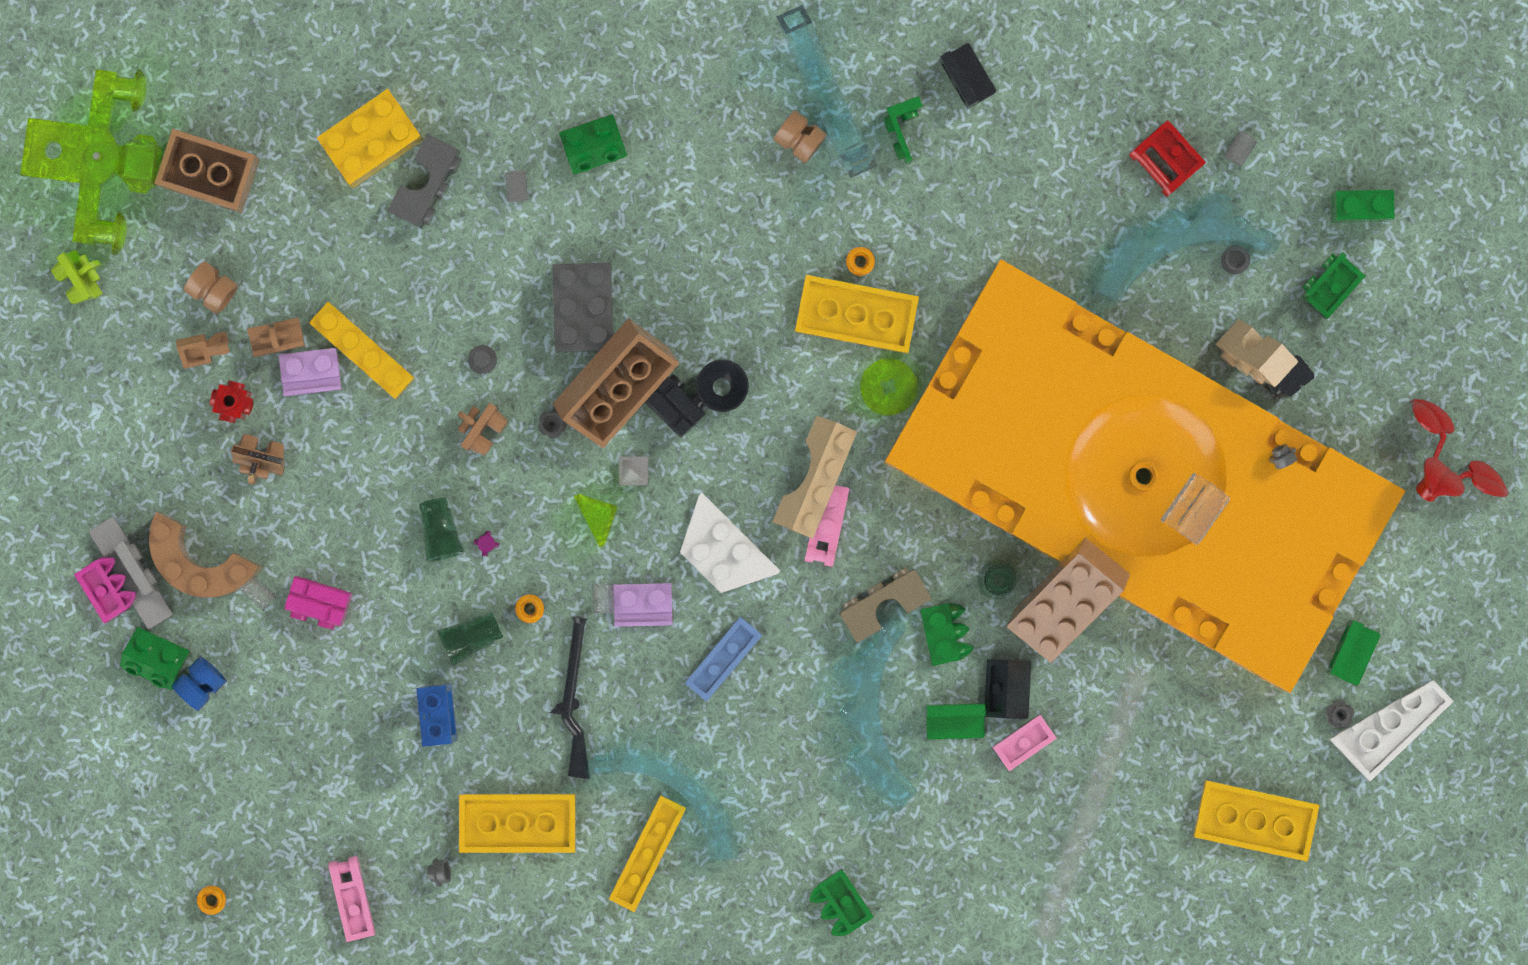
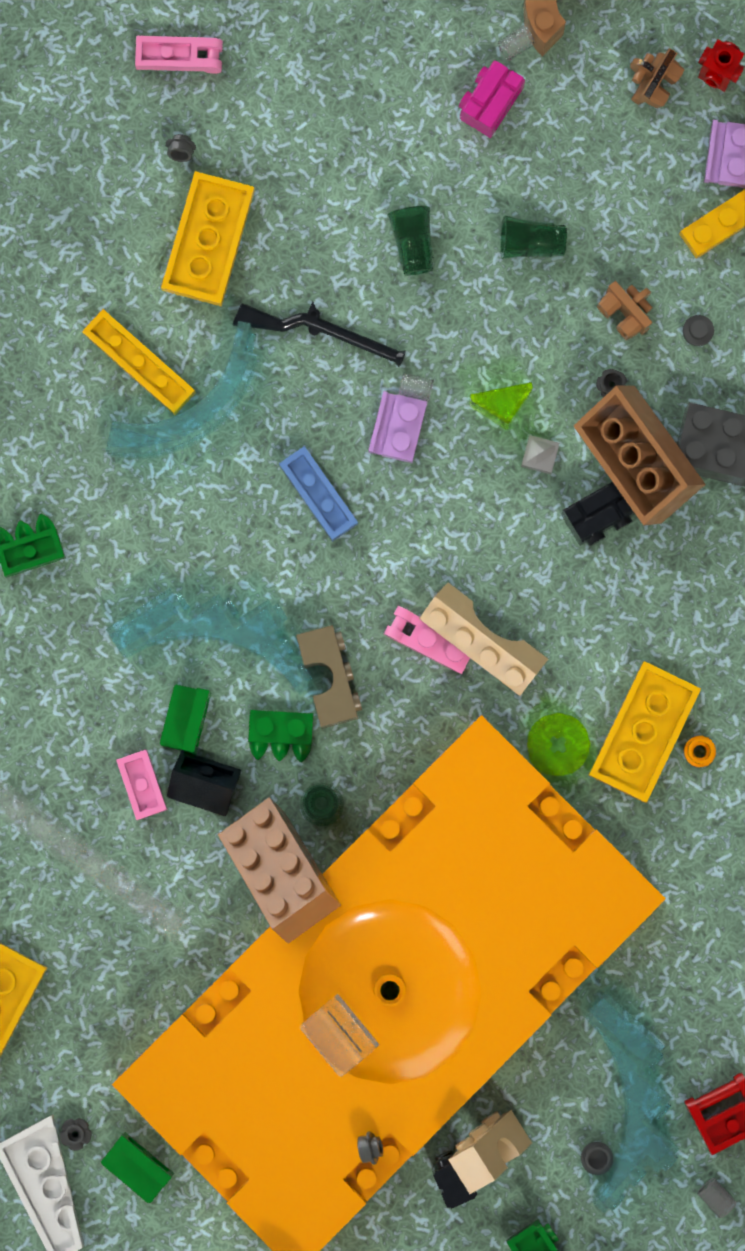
camera: 110 degrees right, 5 degrees down
(439, 720) = (339, 186): blue window -> none
(486, 543) = (505, 284): magenta piece -> none
(529, 618) = (421, 301): light orange plate -> none
(722, 370) = (617, 556): black piece -> none
(723, 550) = (431, 524): white wing -> none

